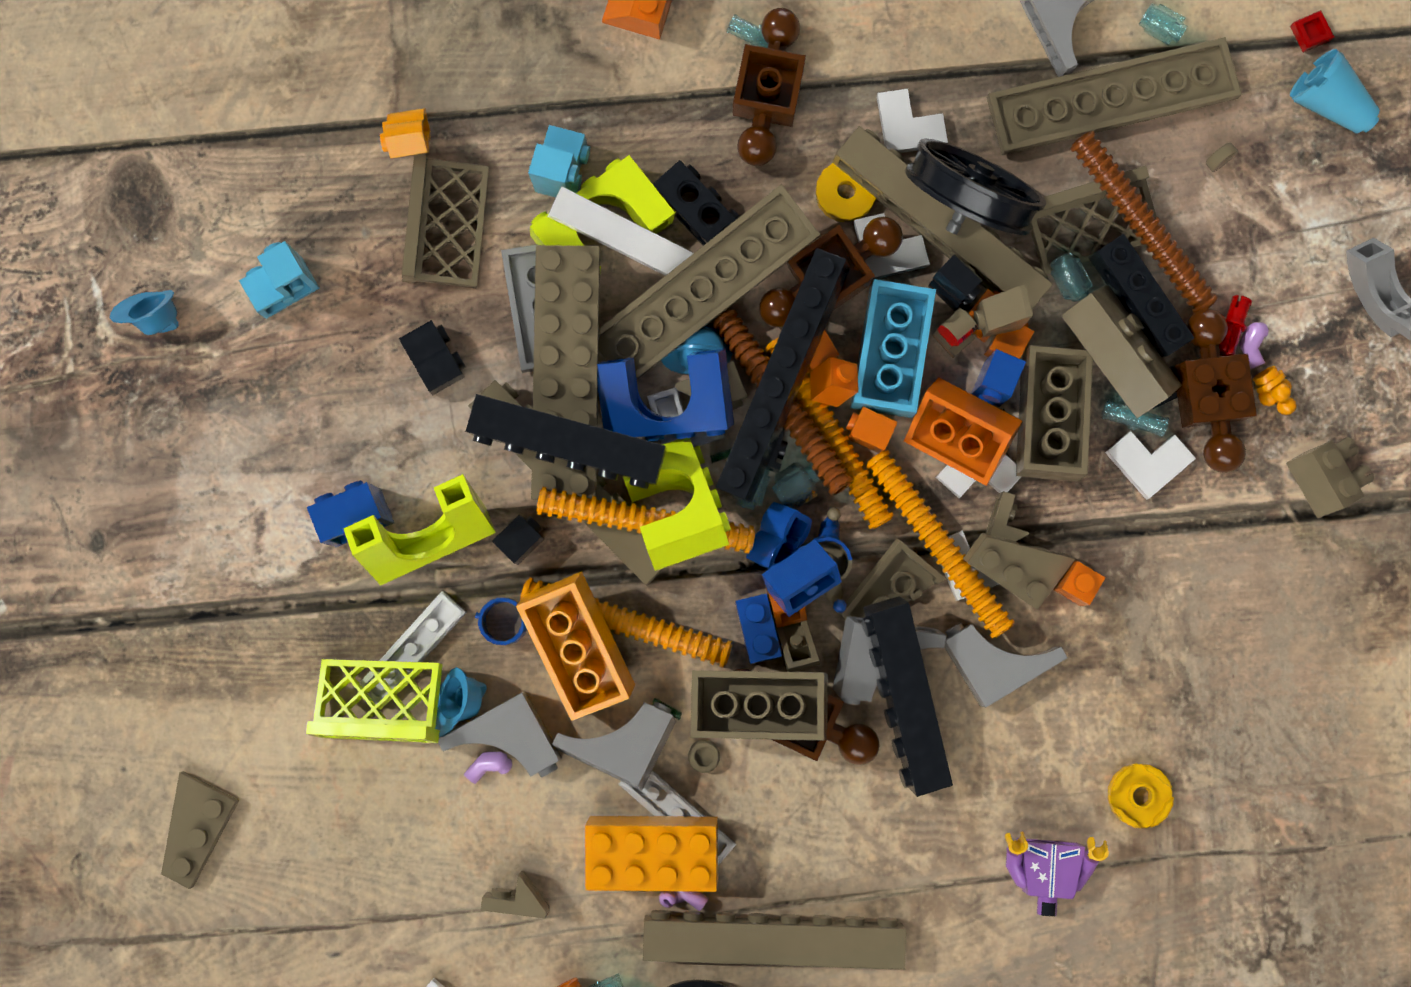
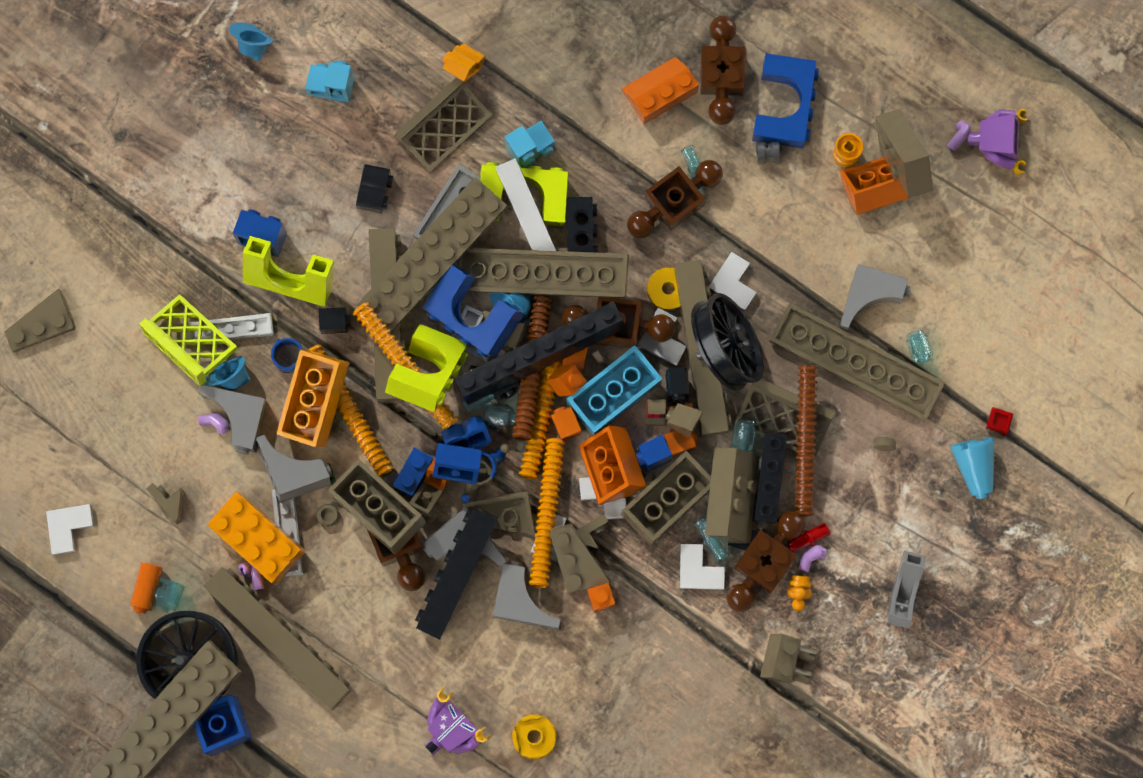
camera: 40 degrees right, 5 degrees down
(566, 440) = (400, 289): black brick -> none

